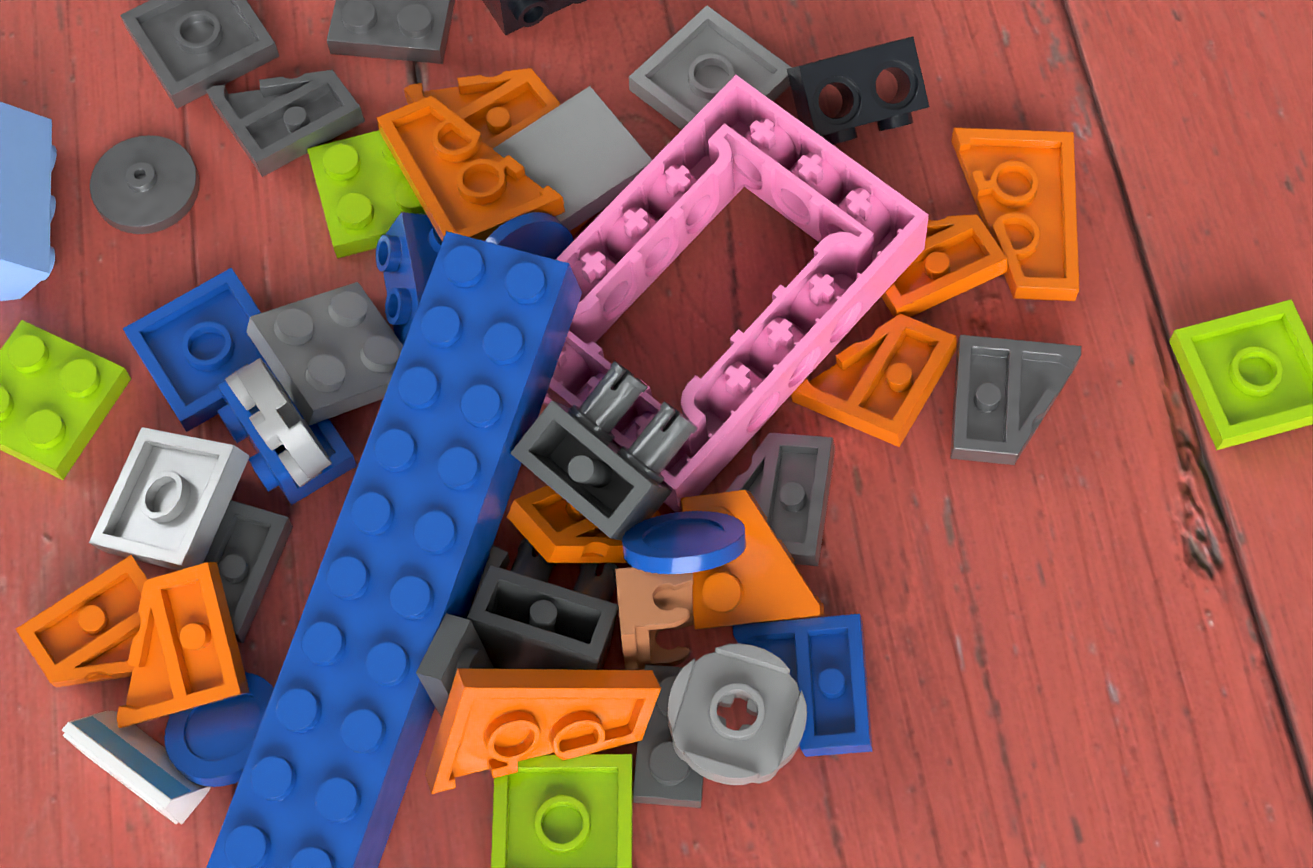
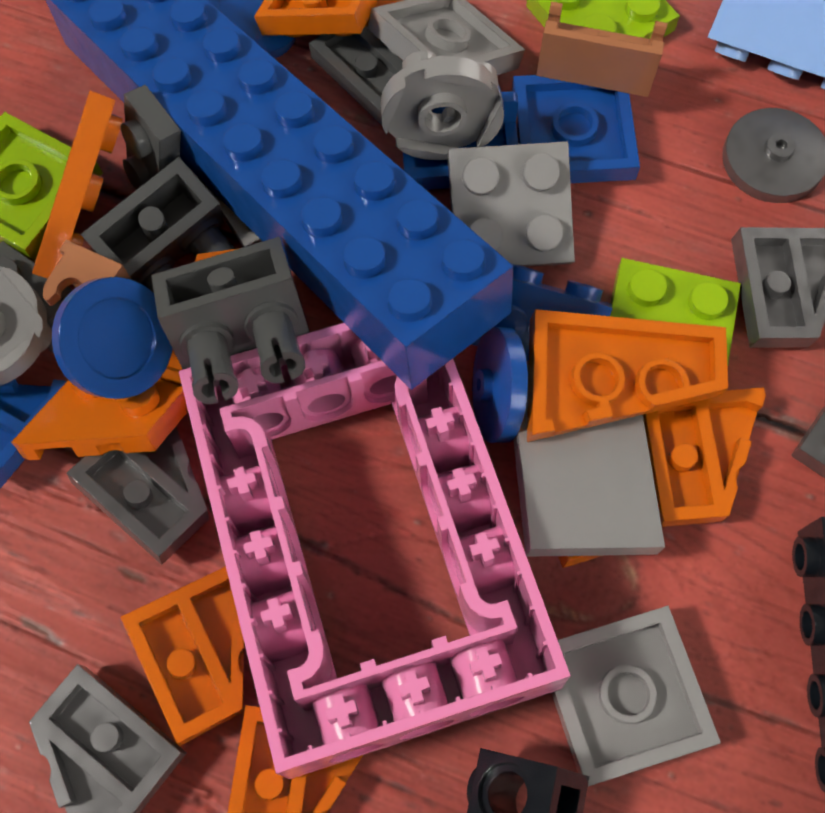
camera: 120 degrees right, 5 degrees up
(123, 344) = (599, 56): none -> nougat hinge

